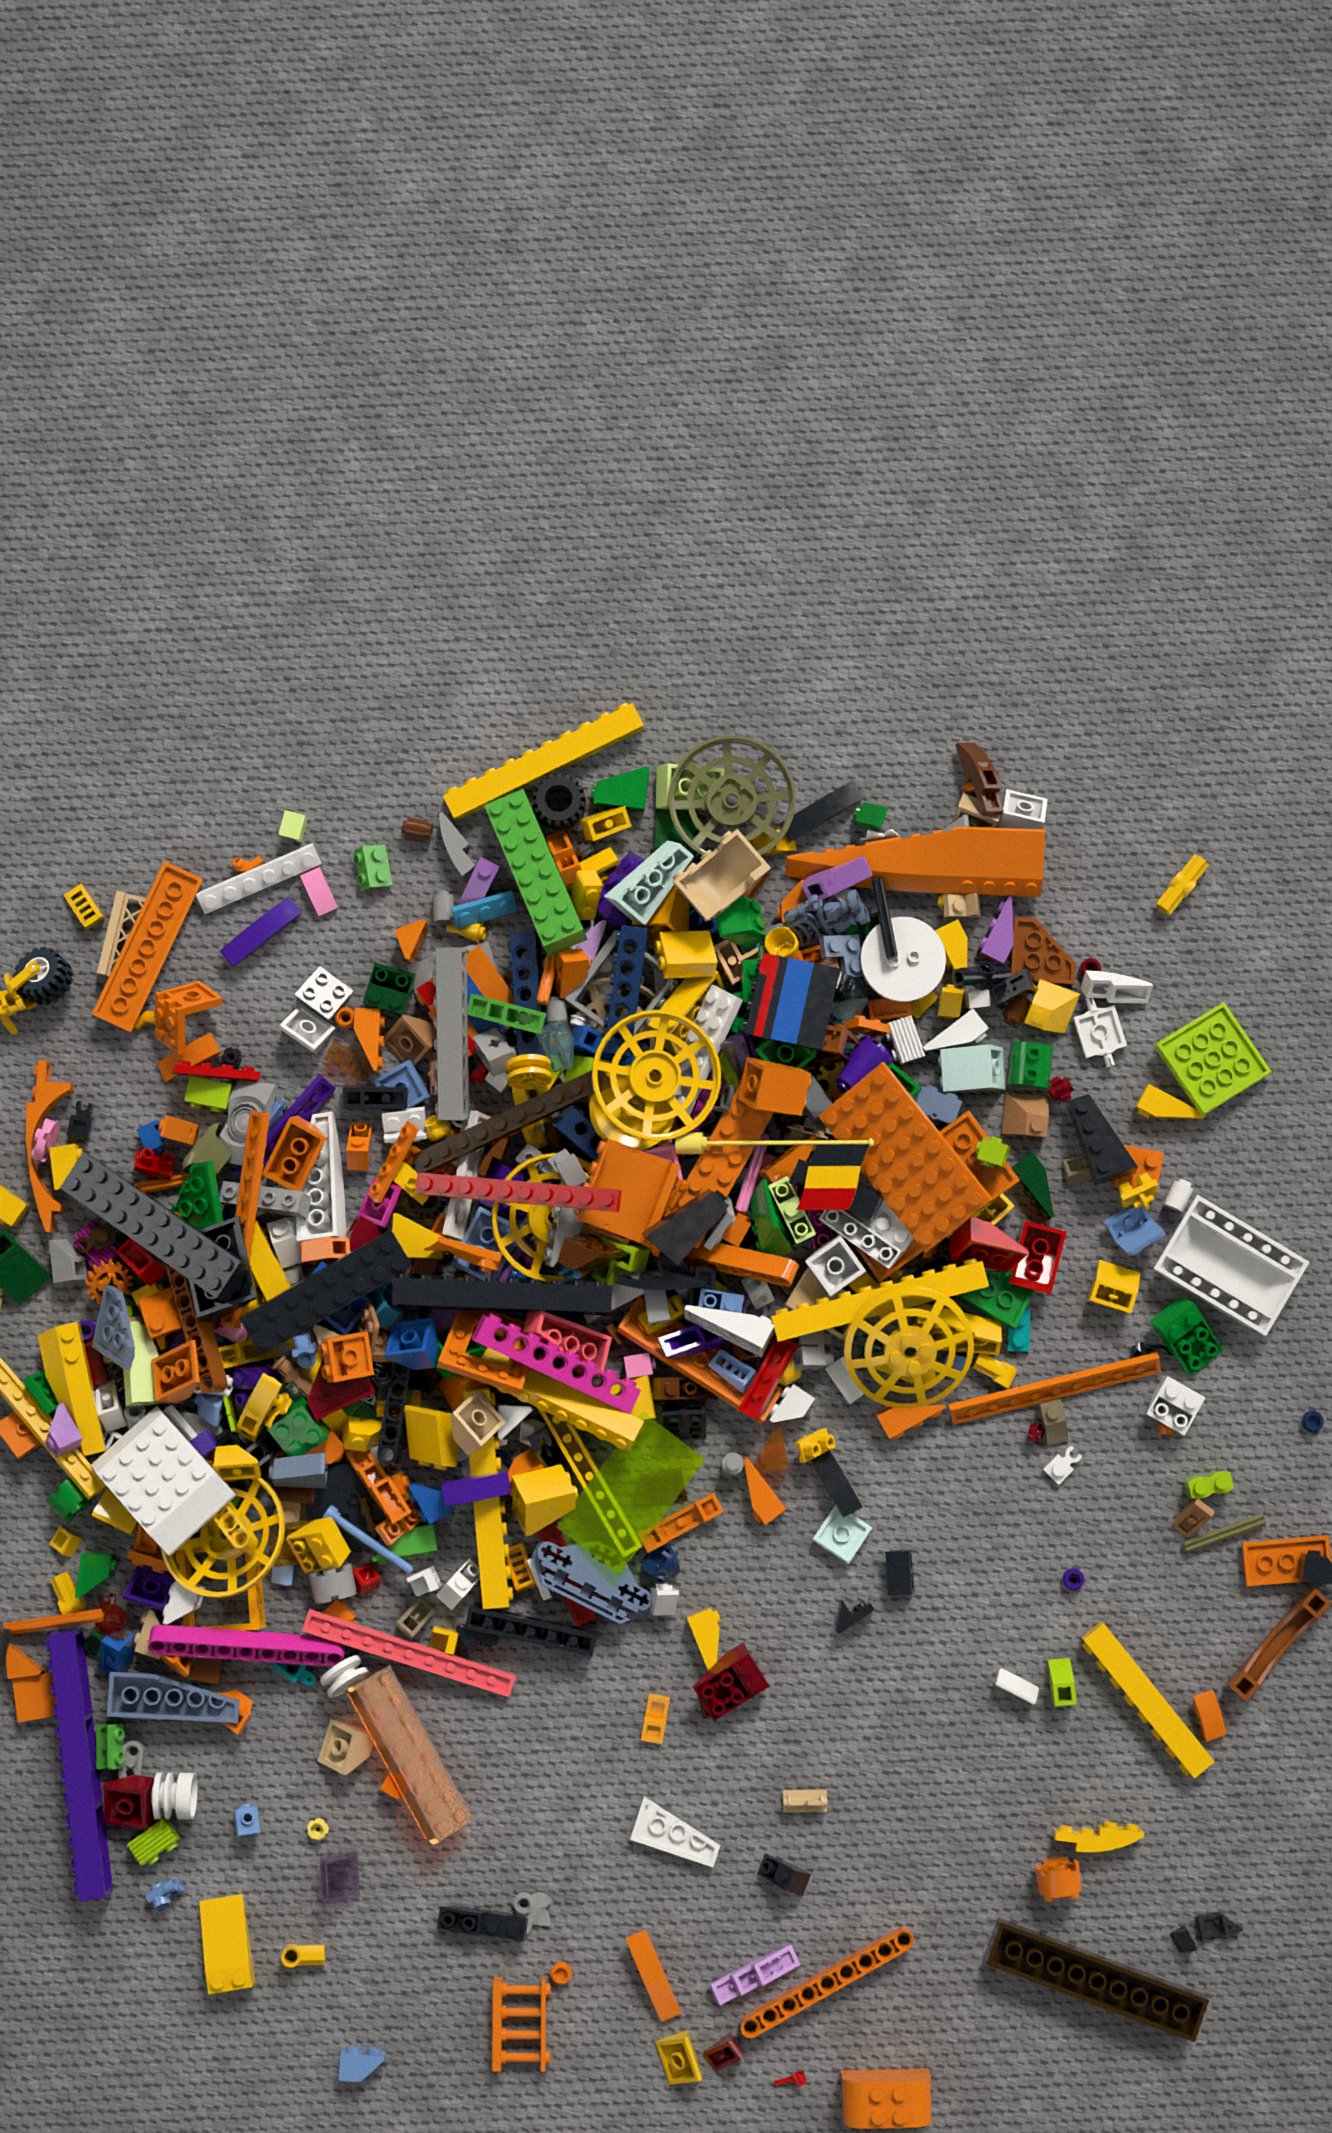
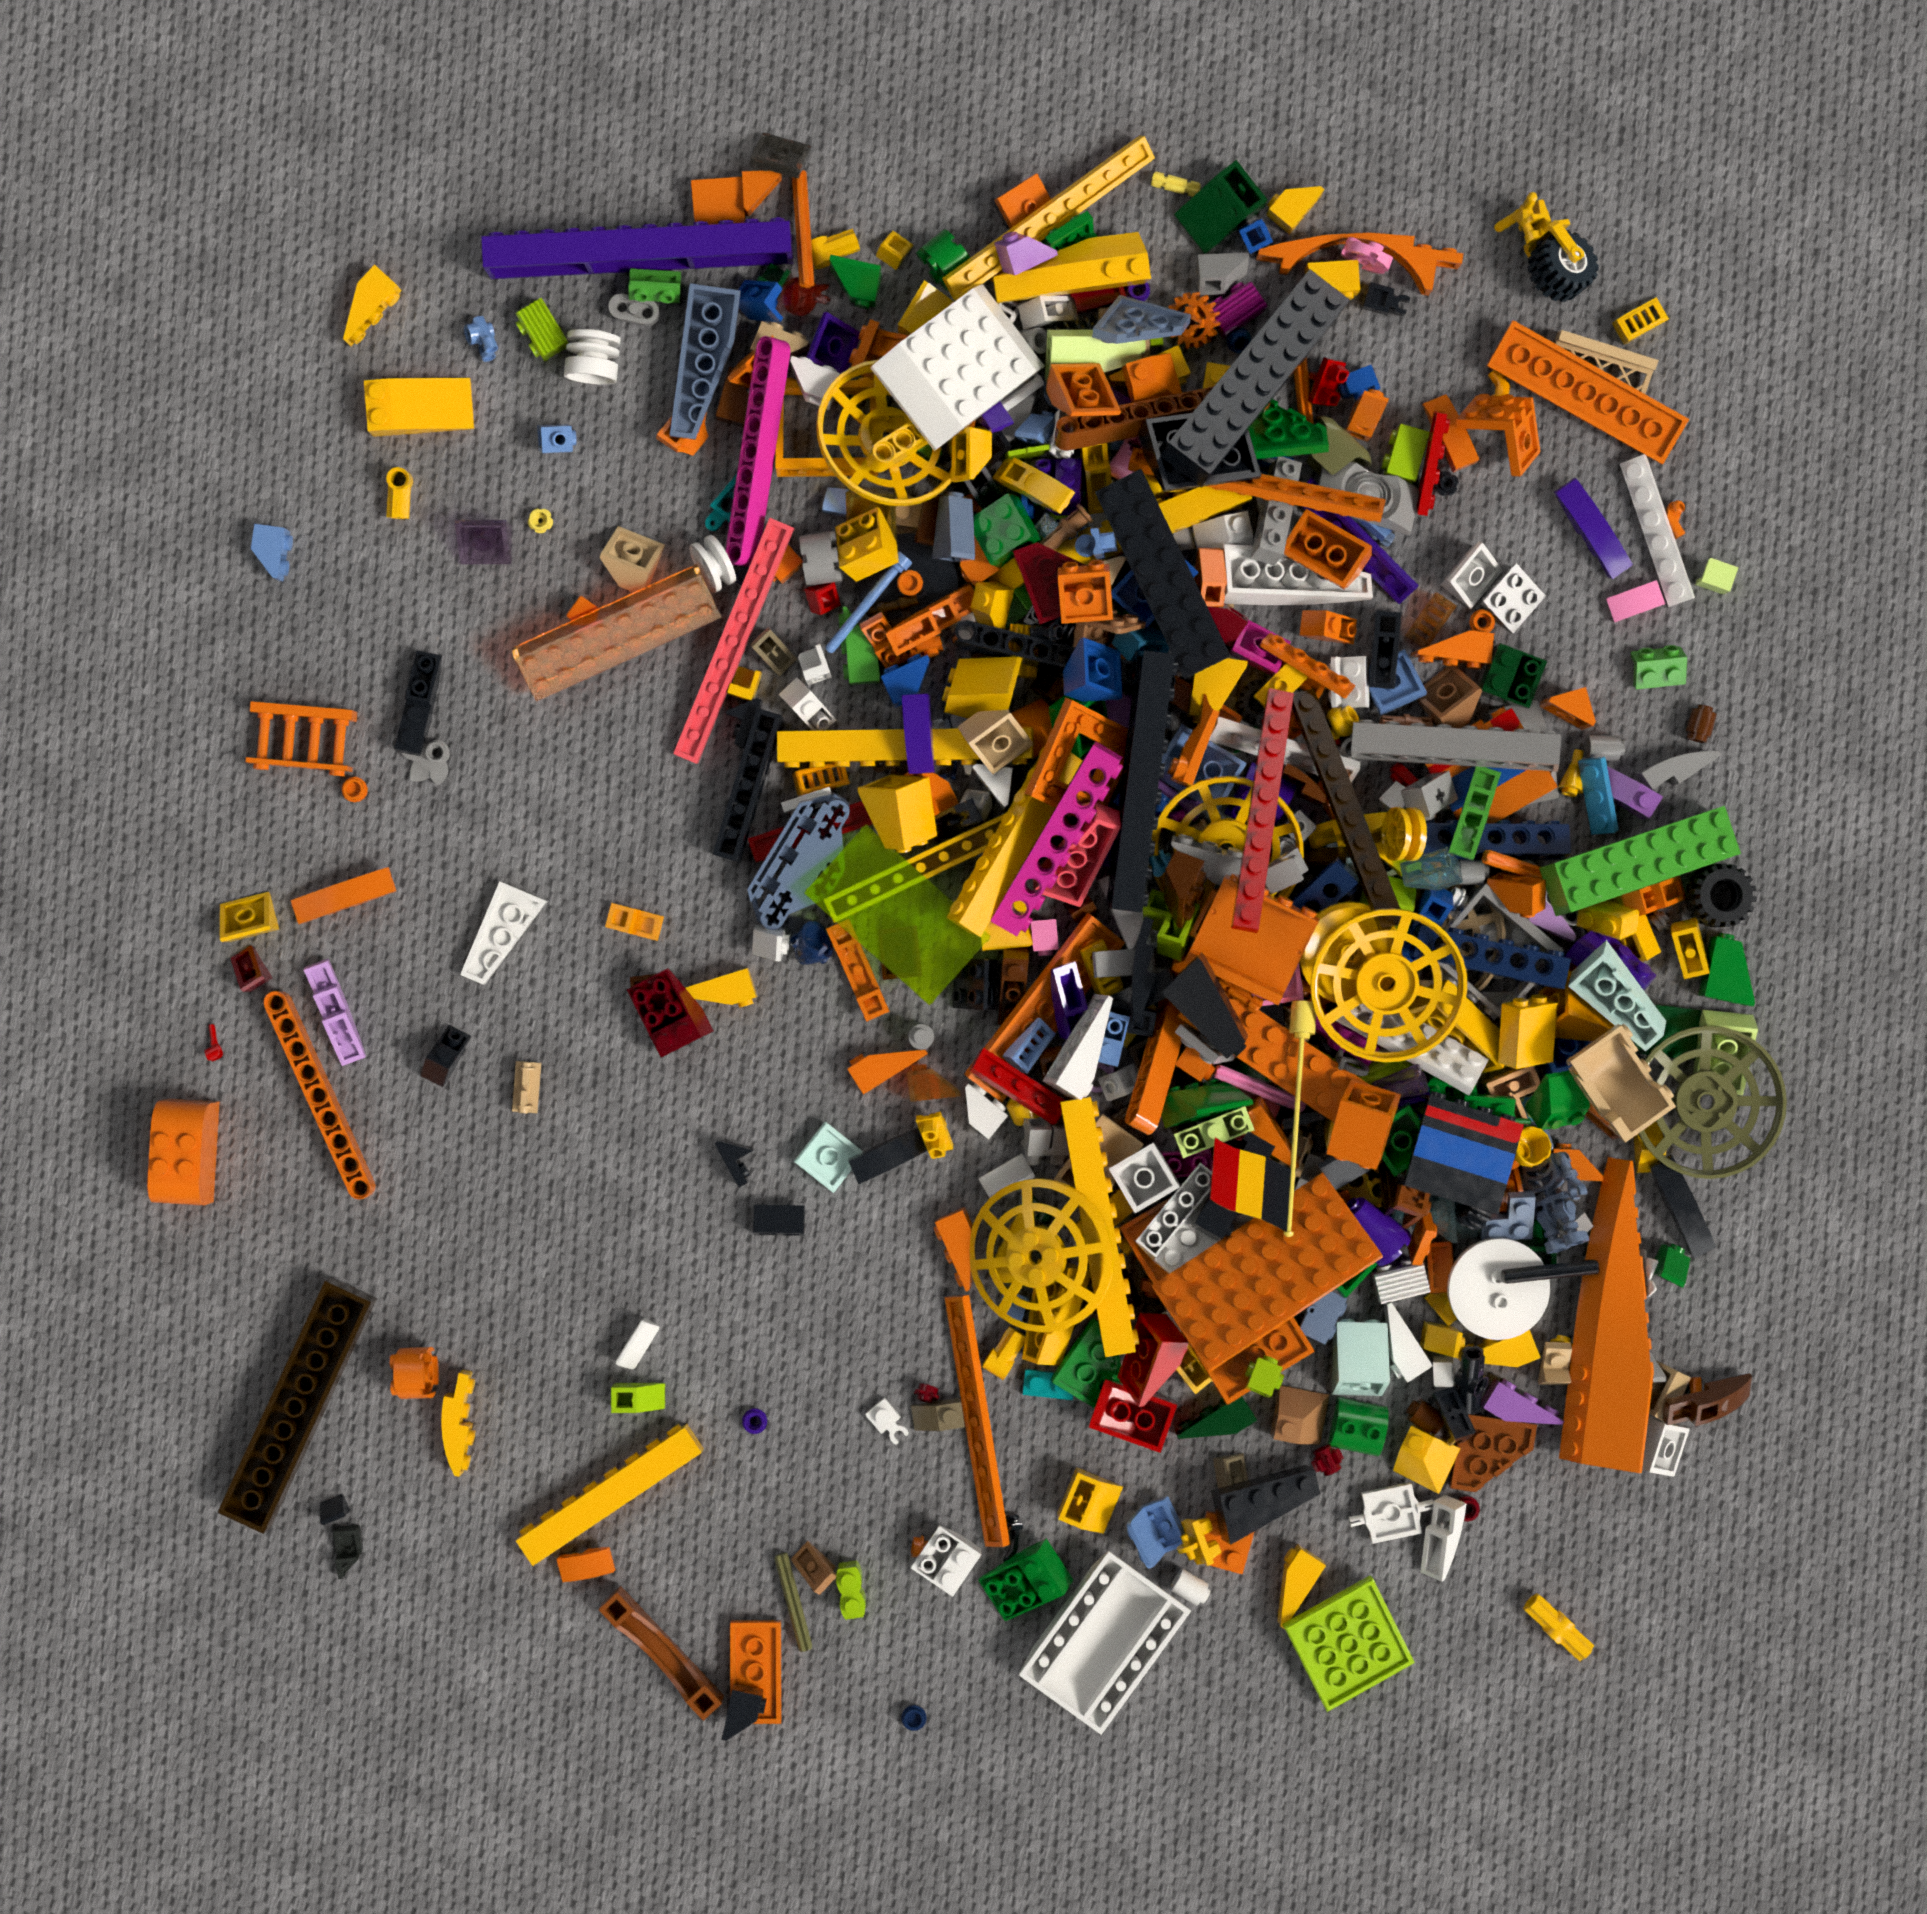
camera: 90 degrees right, 5 degrees up
(34, 1235) = (1255, 235): none -> blue brick
(100, 1237) = (1247, 314): dark brown plate -> none
(129, 1801) = (589, 303): dark red slope -> none
(138, 1994) = (370, 299): none -> yellow slope
(140, 1261) = (1214, 358): red arch -> none
(280, 1407) = (1034, 512): yellow plate -> none
(348, 1505) = (910, 582): none -> orange tile
(544, 761) = (1774, 889): yellow brick -> none
(836, 878) = (1602, 1219): medium lavender slope -> none

